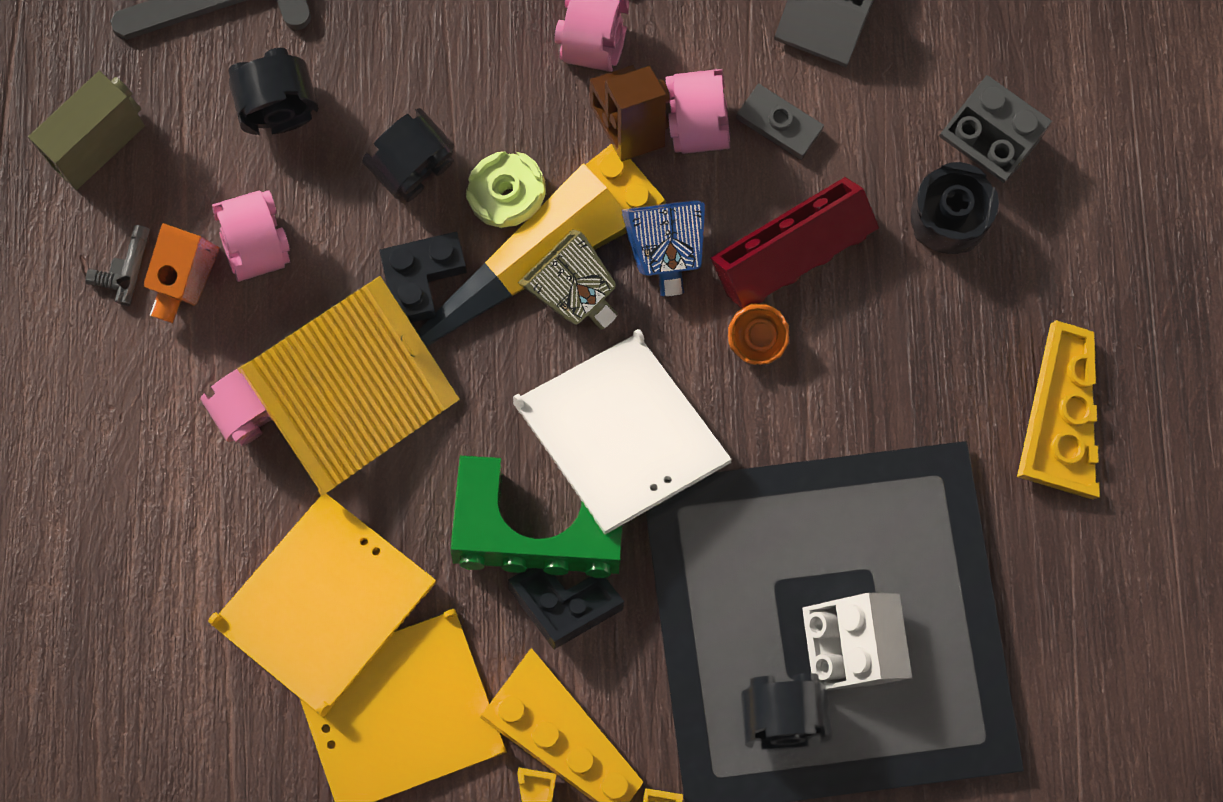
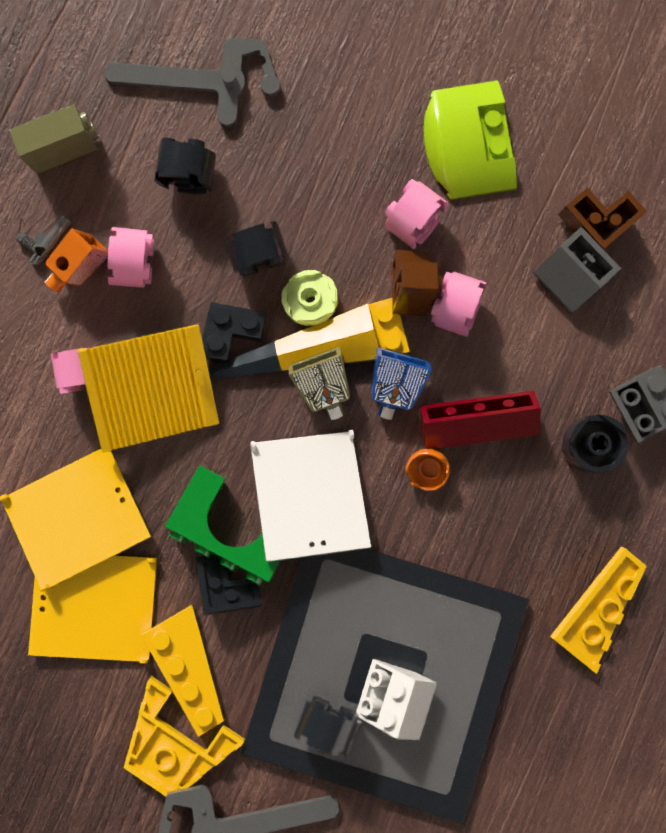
camera: 25 degrees right, 10 degrees up
(779, 121) = (509, 330): dark grey plate -> none

